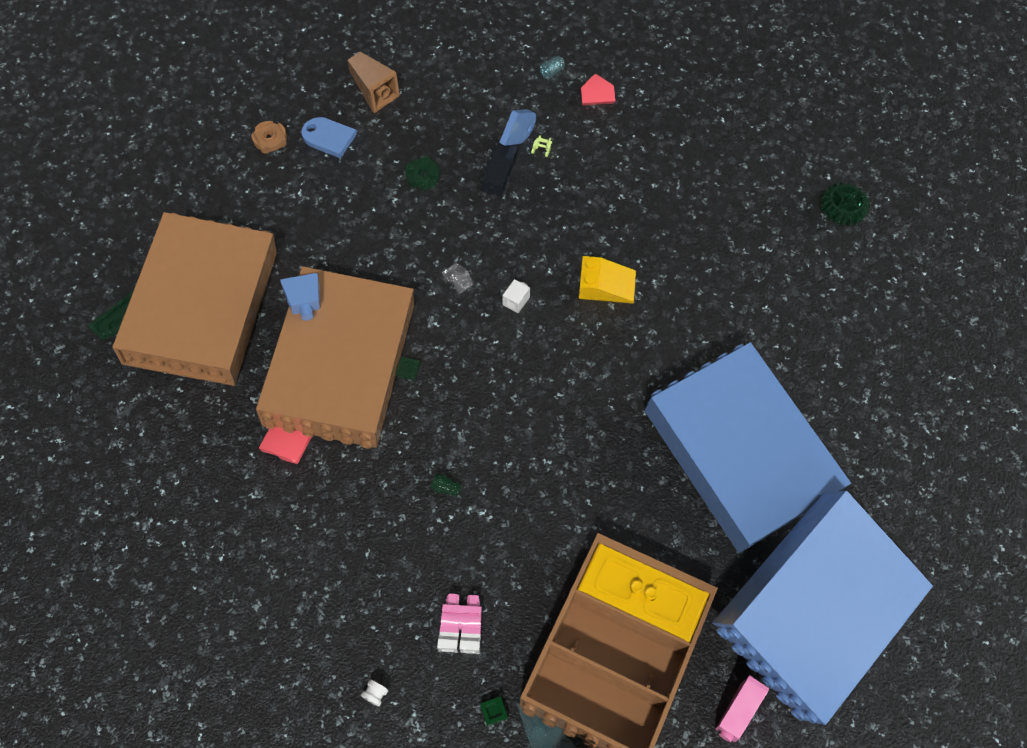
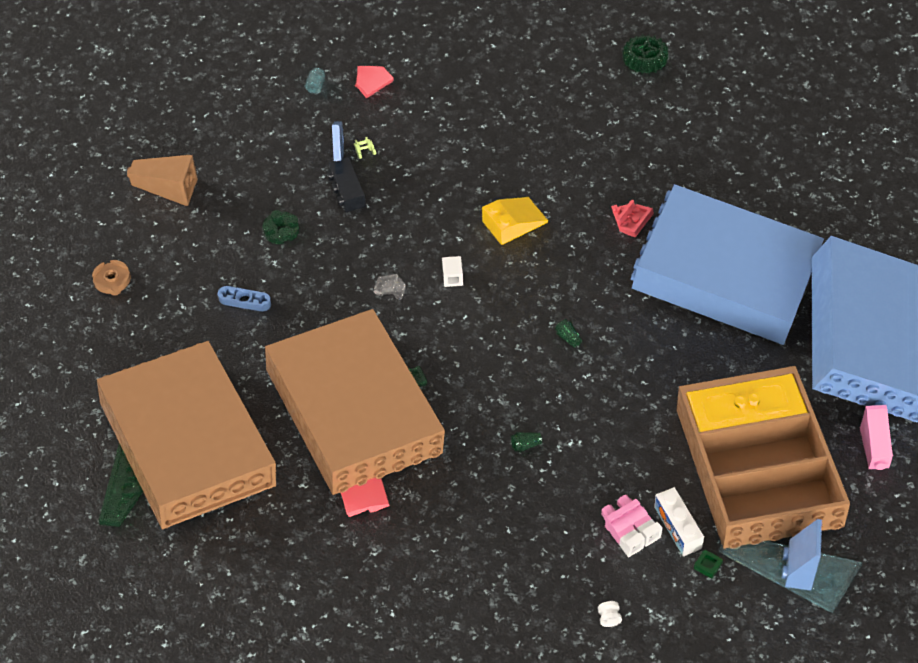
camera: 35 degrees left, 10 degrees down
(302, 294) = (290, 364): medium blue torso -> none
(328, 136) = (164, 246): medium blue tile -> none
(344, 208) = (251, 303): none -> medium blue beam
(501, 653) = (678, 521): none -> white brick
(561, 414) = (568, 333): none -> clear green cone
(706, 345) = (631, 217): none -> coral slope

